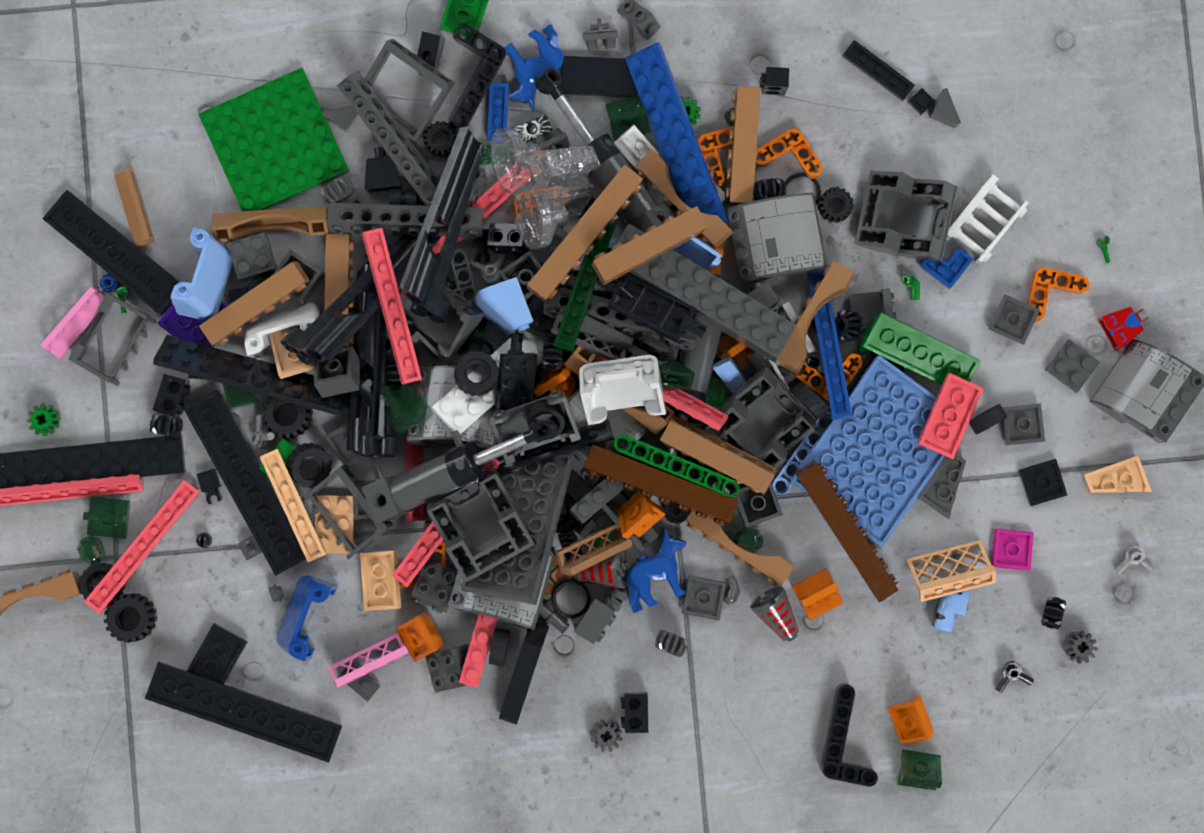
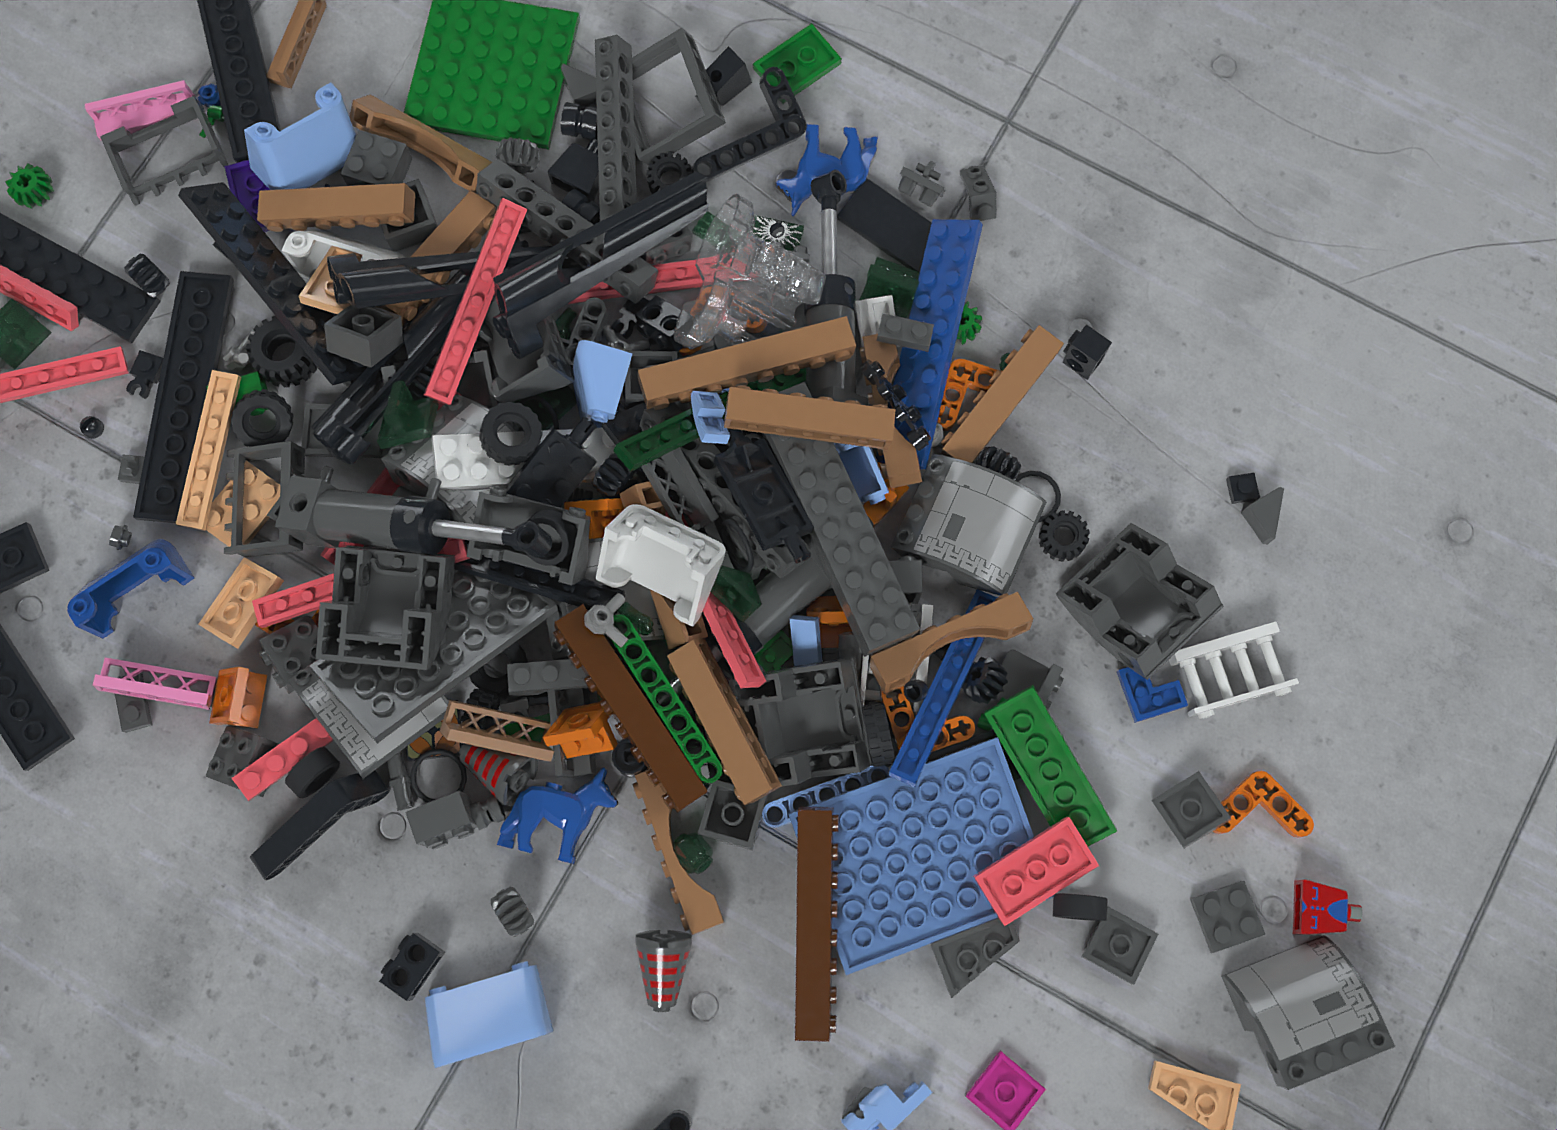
camera: 35 degrees right, 10 degrees down
(166, 394) = (175, 245): black brick -> none
(238, 398) = (245, 300): clear green slope -> none
(359, 140) = (577, 121): none -> black wheel
(497, 108) = (760, 180): blue plate -> none
(587, 283) = (708, 416): none -> light blue slope
(601, 730) = (361, 980): dark grey gear -> none
(611, 447) = (601, 620): none -> light grey piece
(631, 429) = (637, 618): none -> clear green arm
(660, 145) = (905, 332): none -> dark grey plate
(681, 194) = (874, 373): none -> black plant
(698, 709) = (486, 1015): none -> light blue windscreen
(703, 597) = (591, 885): dark grey plate -> none
(733, 592) = (631, 903): dark grey arm -> none
(794, 147) = (1058, 440): orange beam -> none
(817, 594) = (729, 978): orange bracket -> none
(878, 70) = (1215, 420): black plate -> none
(913, 285) = (1094, 688): green arm -> none
(955, 582) = (906, 1081): light nougat fence -> none
(1042, 482) = (1098, 1035): black tile -> none
(1104, 248) = (1358, 799): green hand -> none

